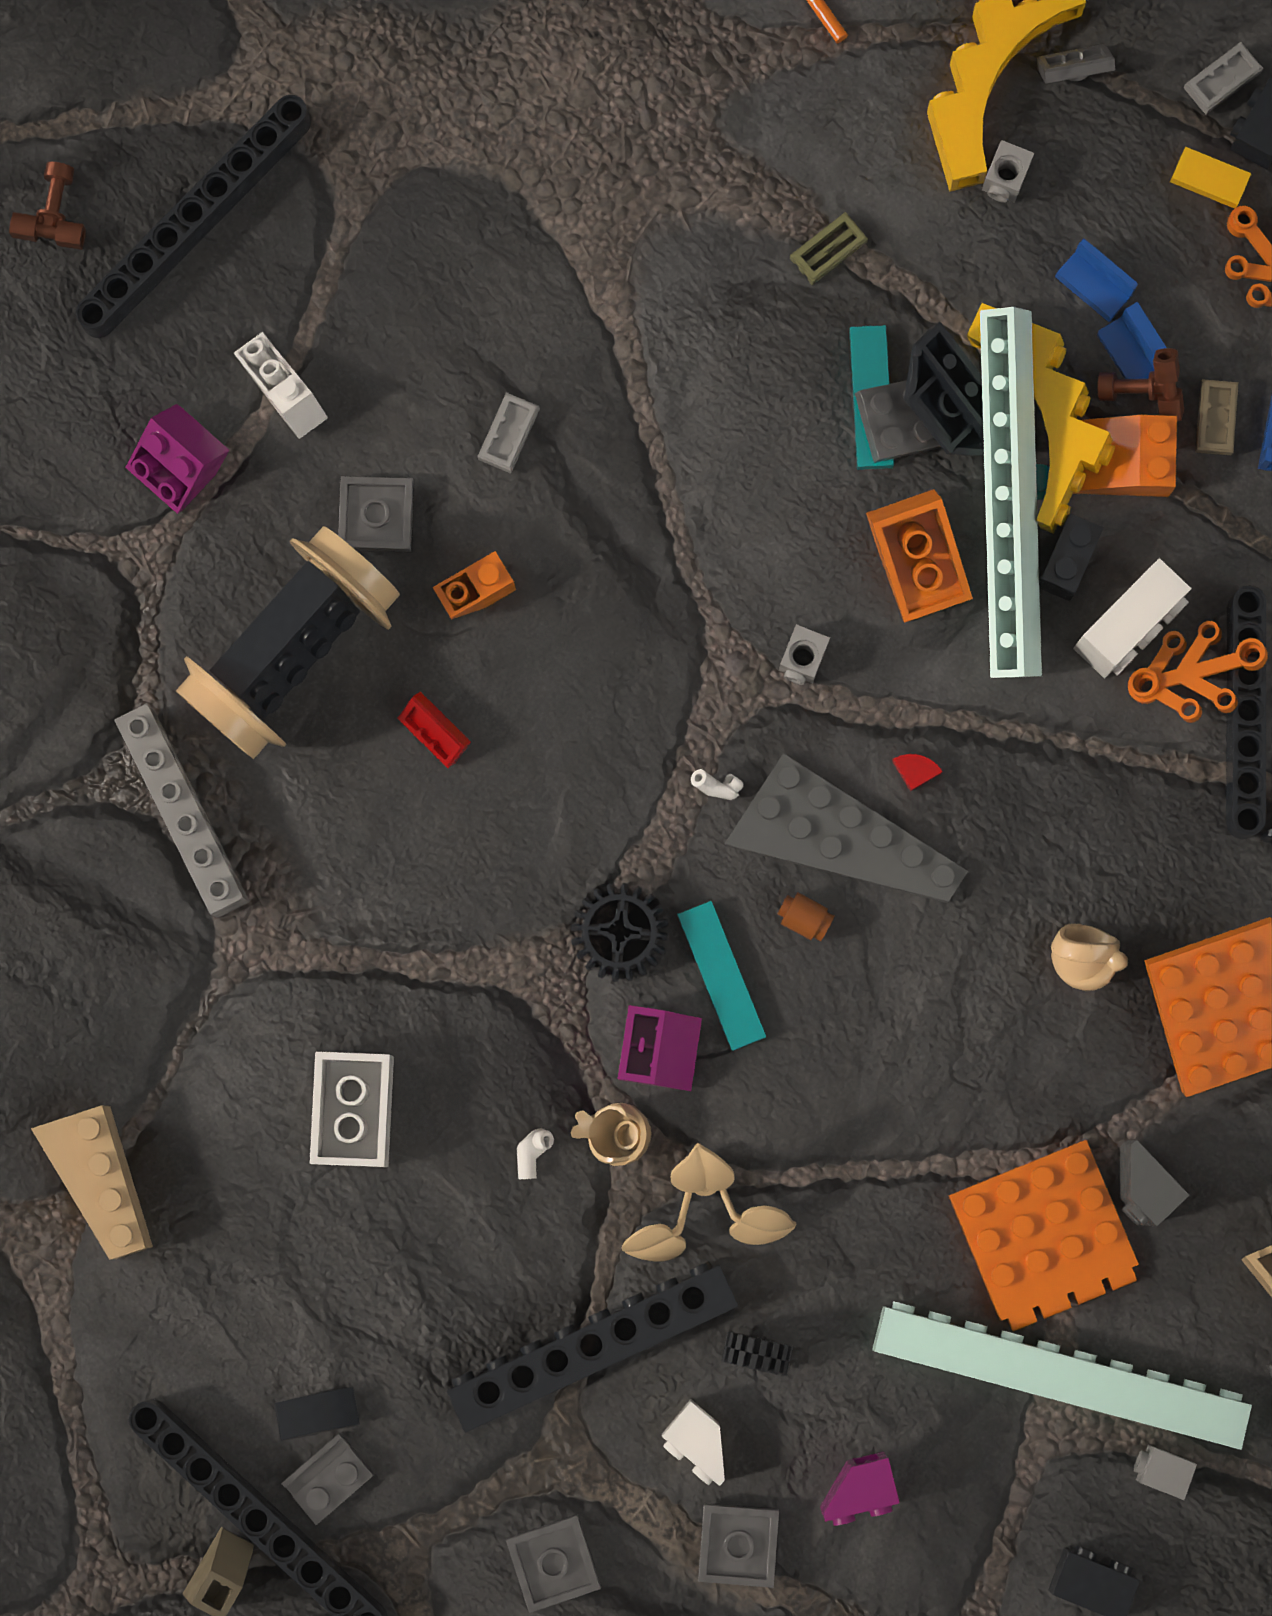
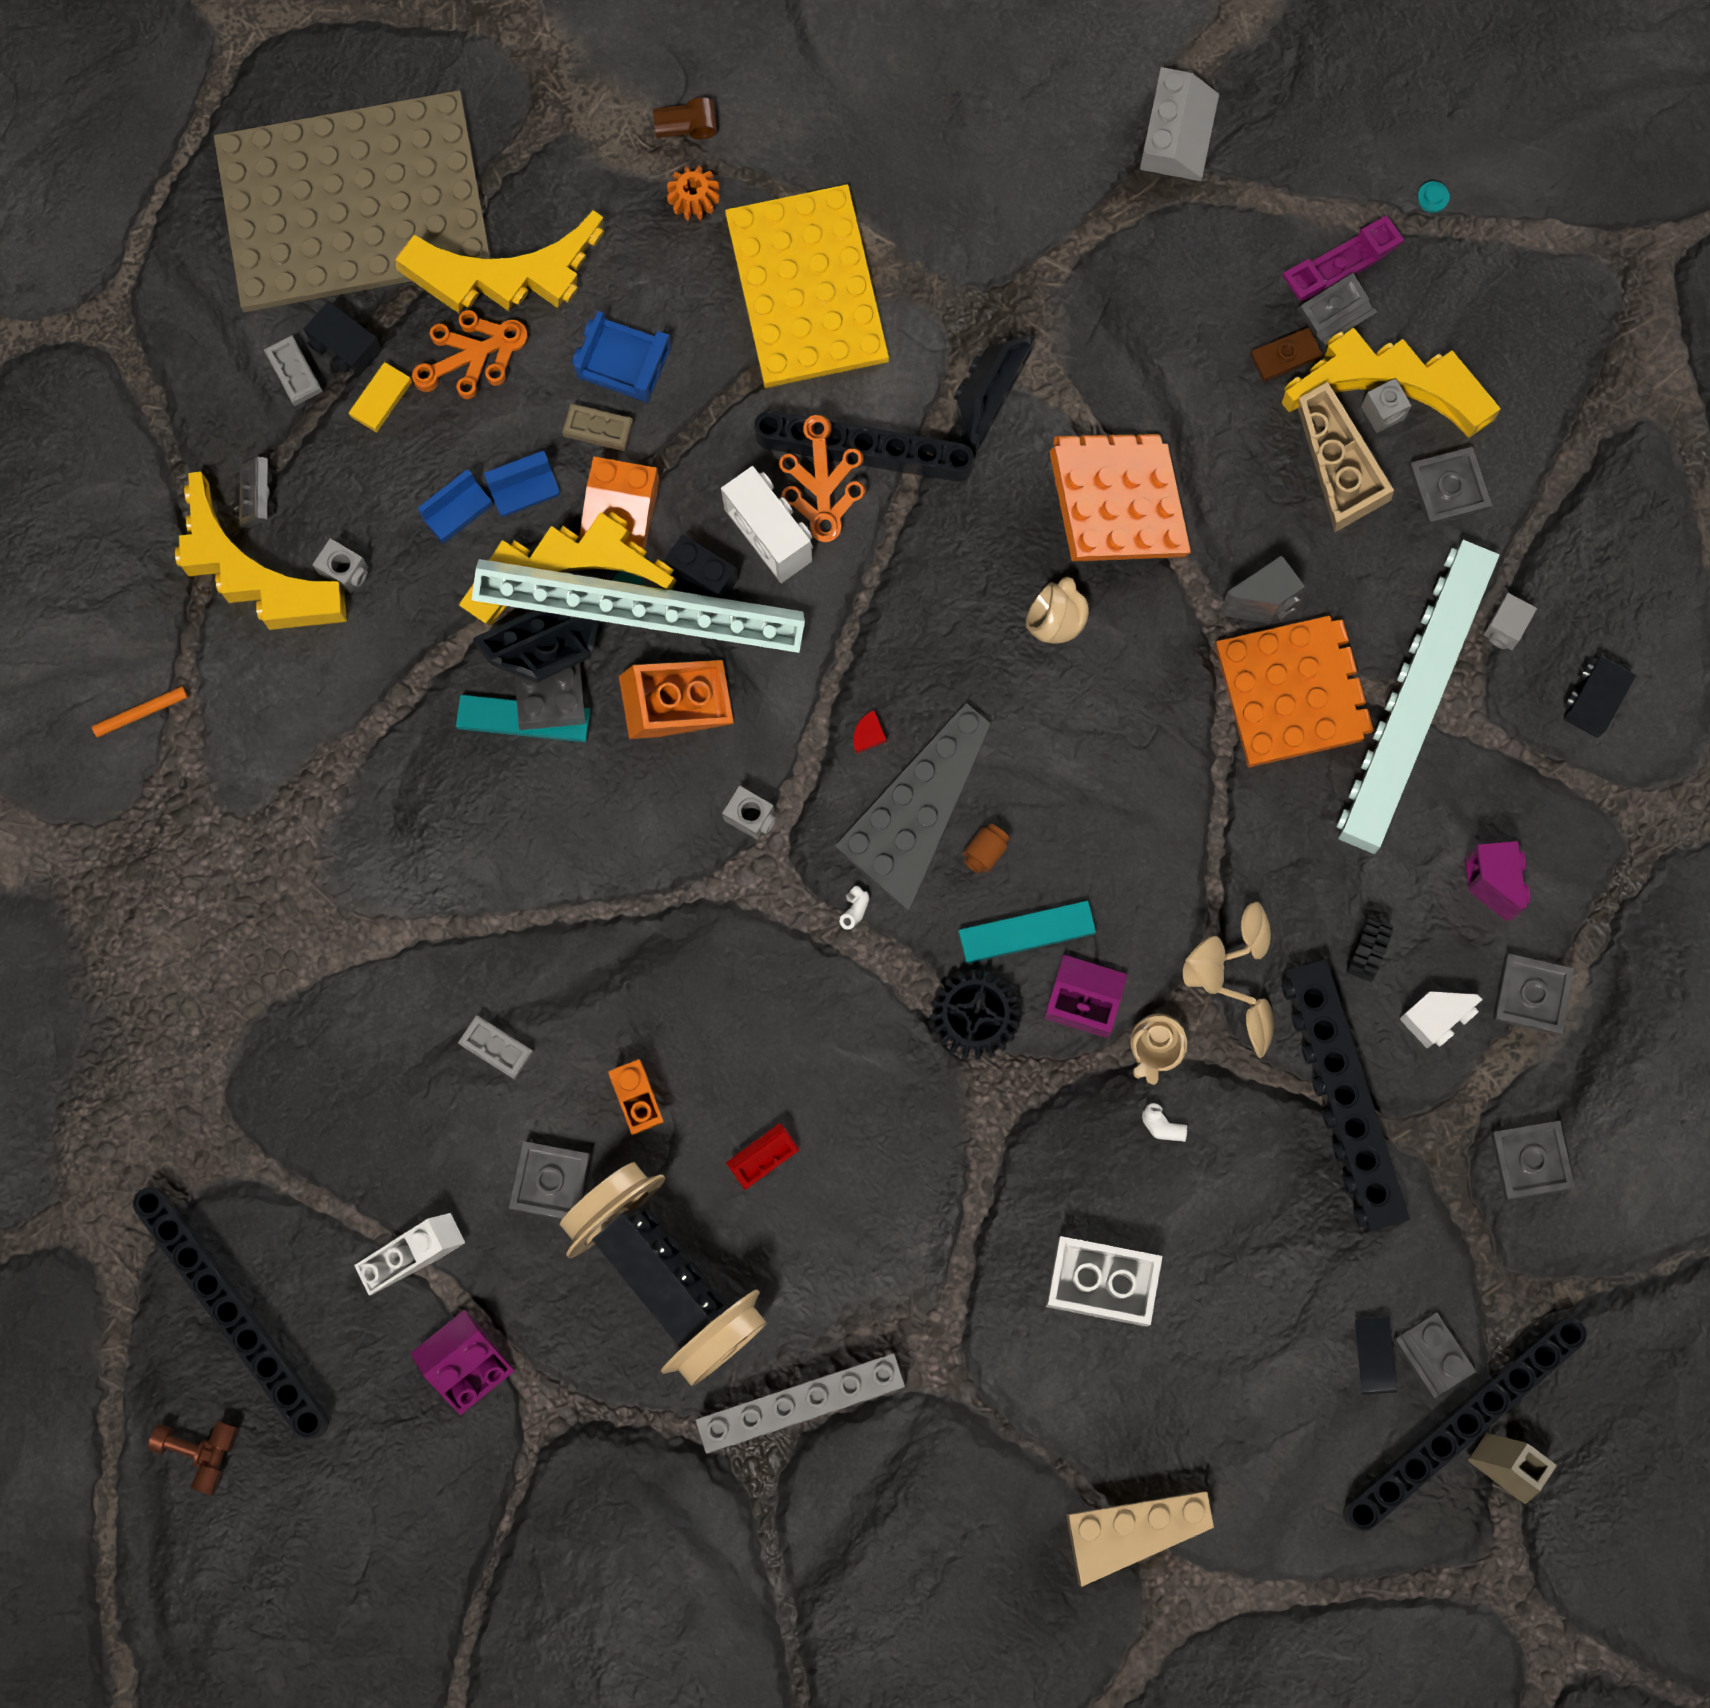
camera: 85 degrees left, 5 degrees down
(805, 267) = (391, 757): olive tile -> none
(1159, 385) = (562, 466): copper bar -> none

